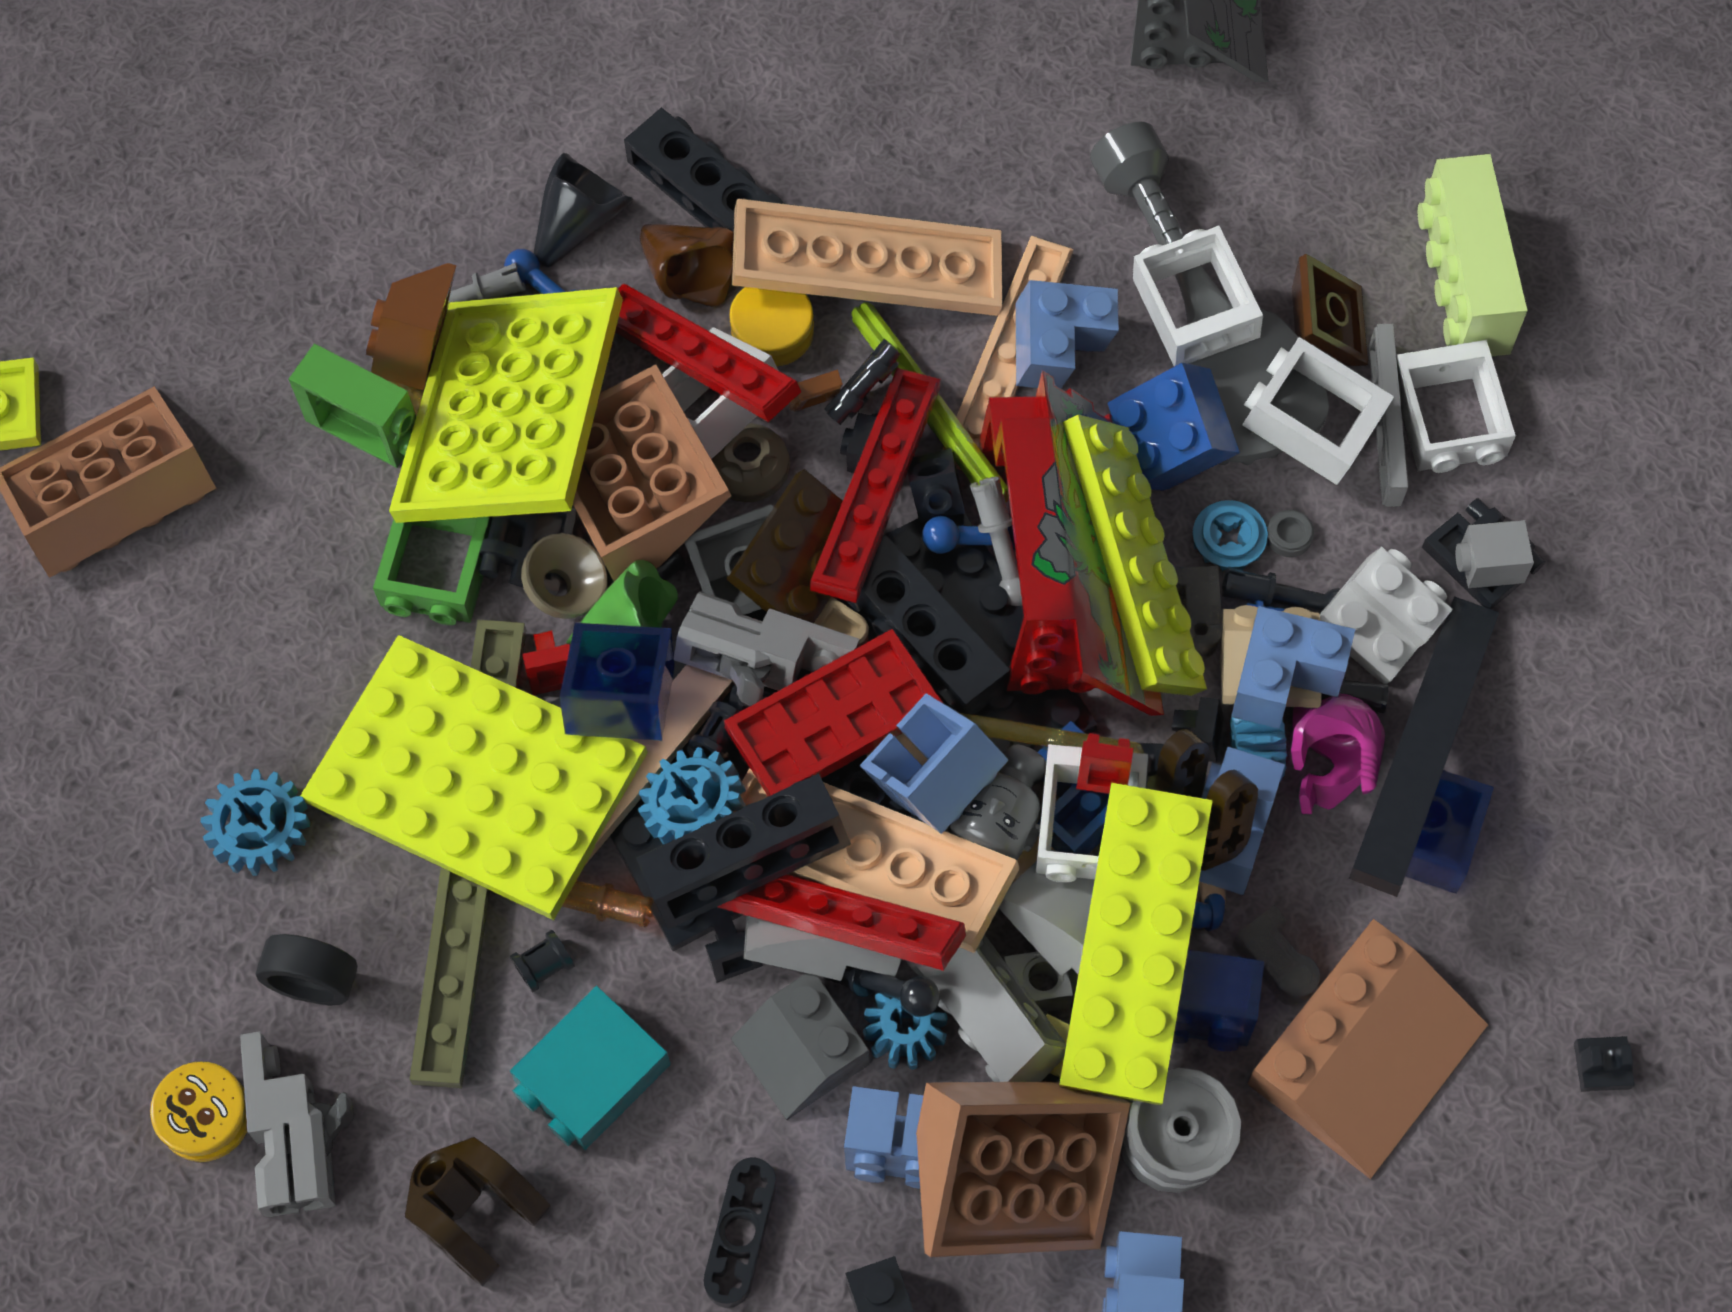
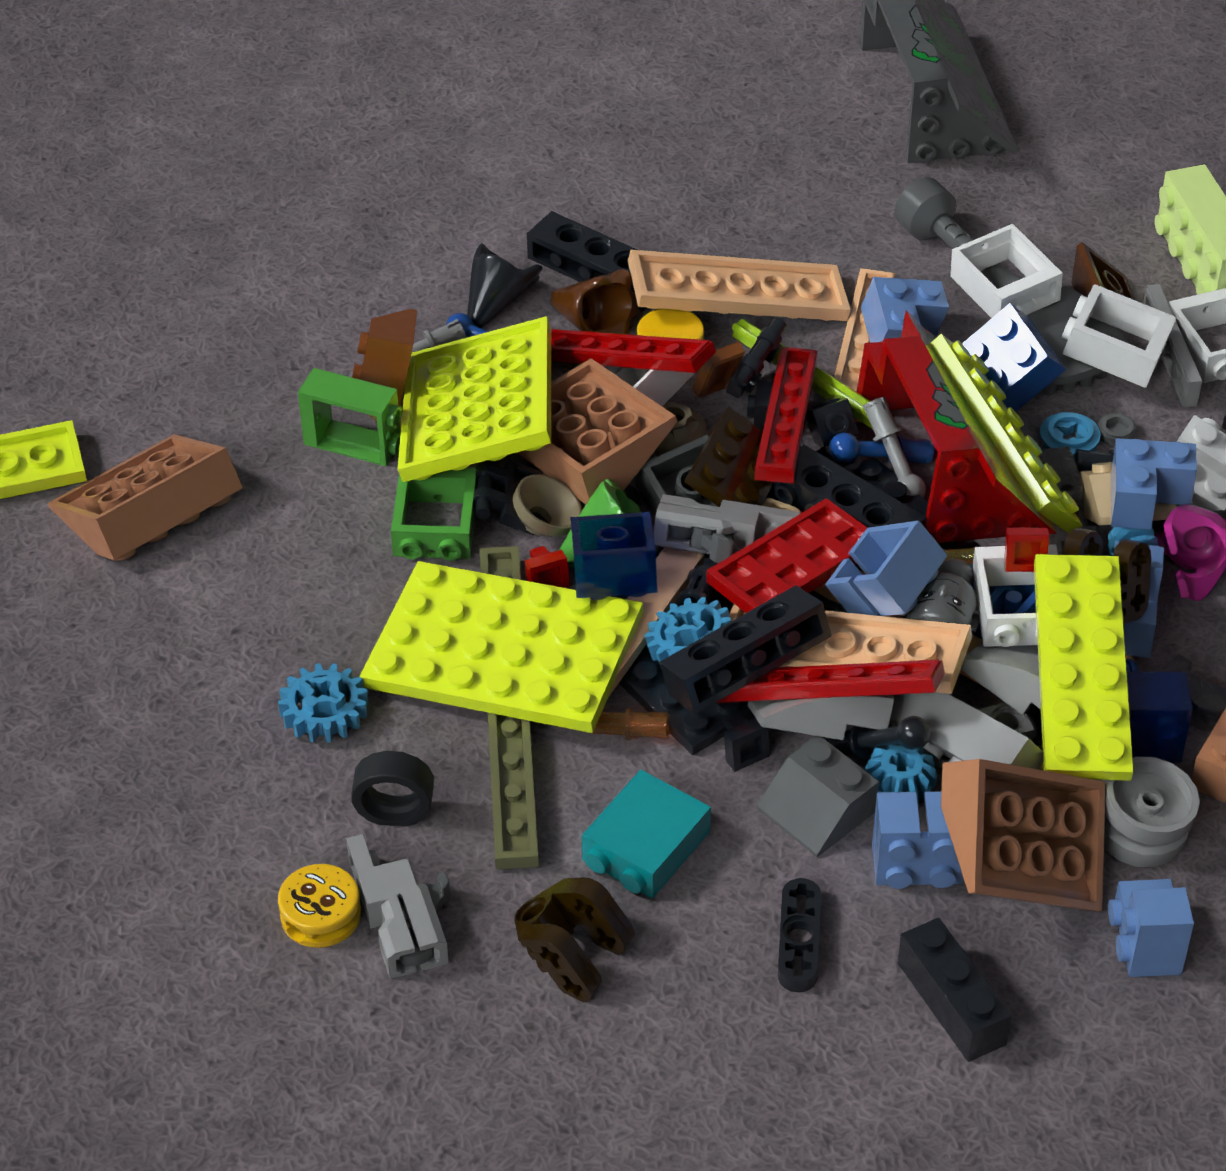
camera: 10 degrees left, 20 degrees down
(542, 960) = (587, 767): black bush -> none

